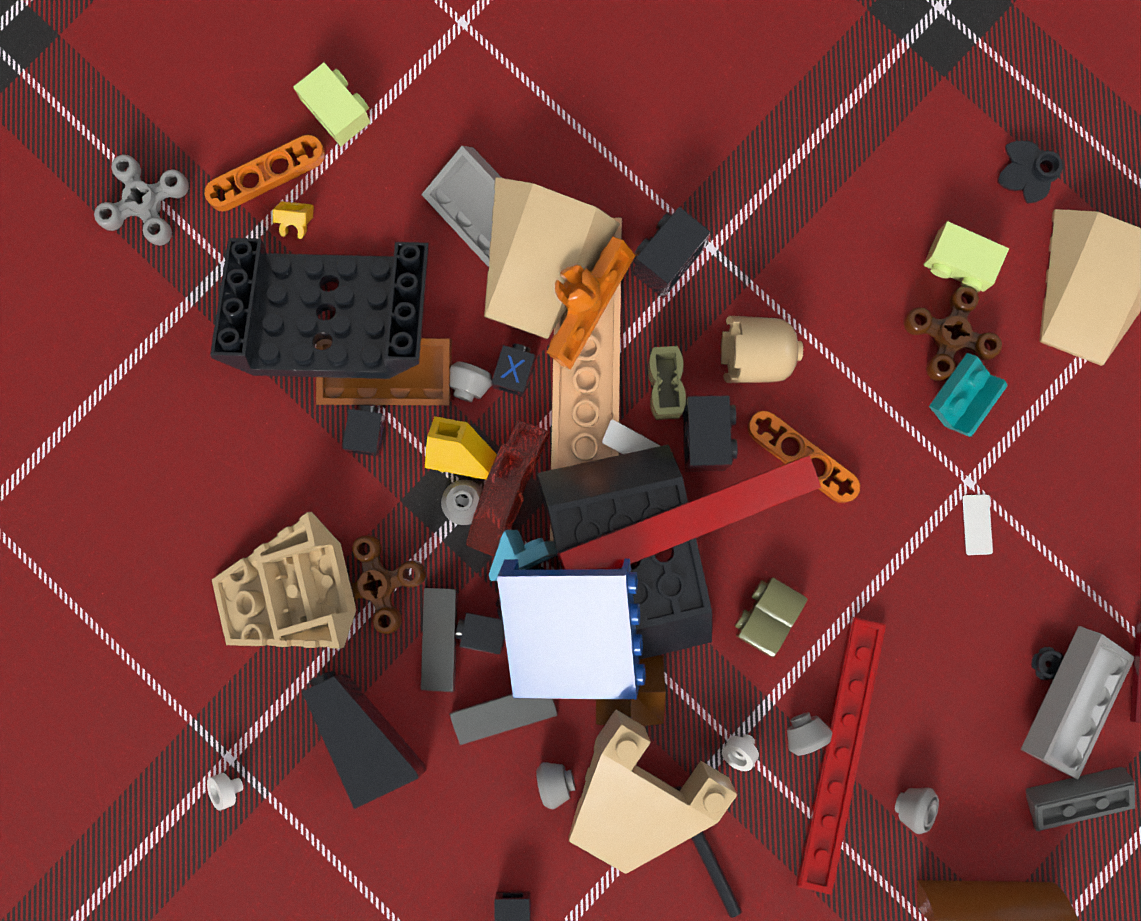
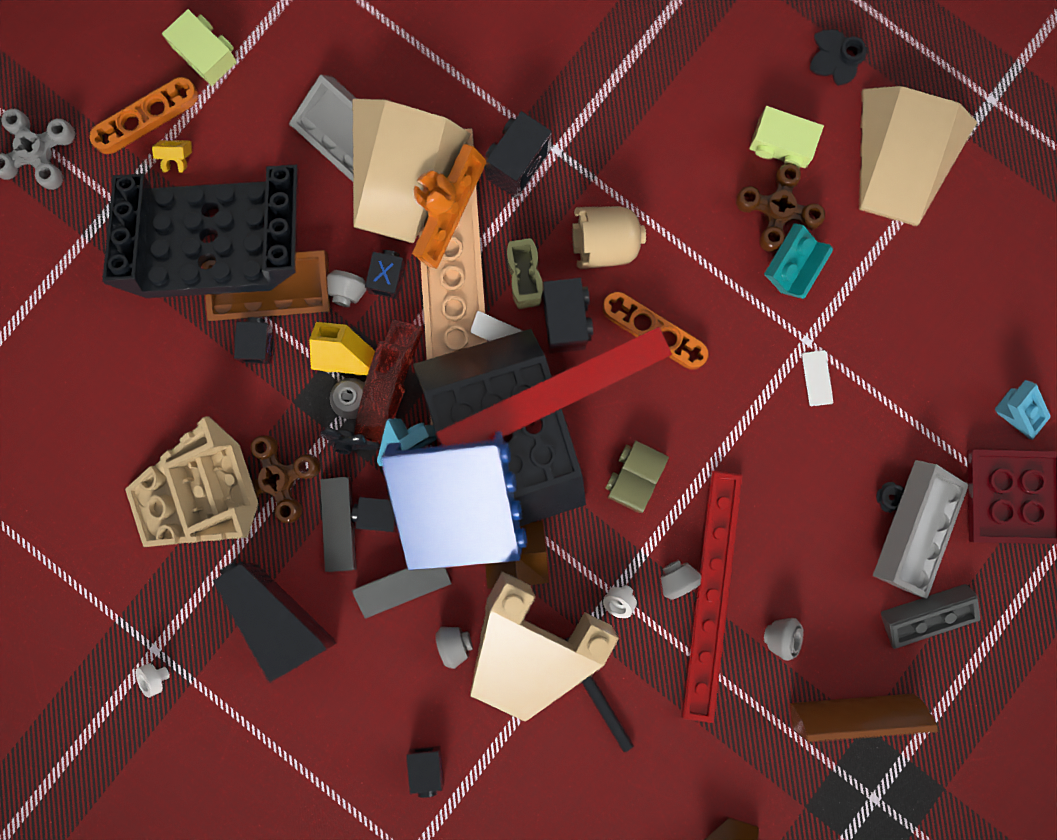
camera: 10 degrees left, 0 degrees up
(456, 549) = (345, 441): none -> black plate

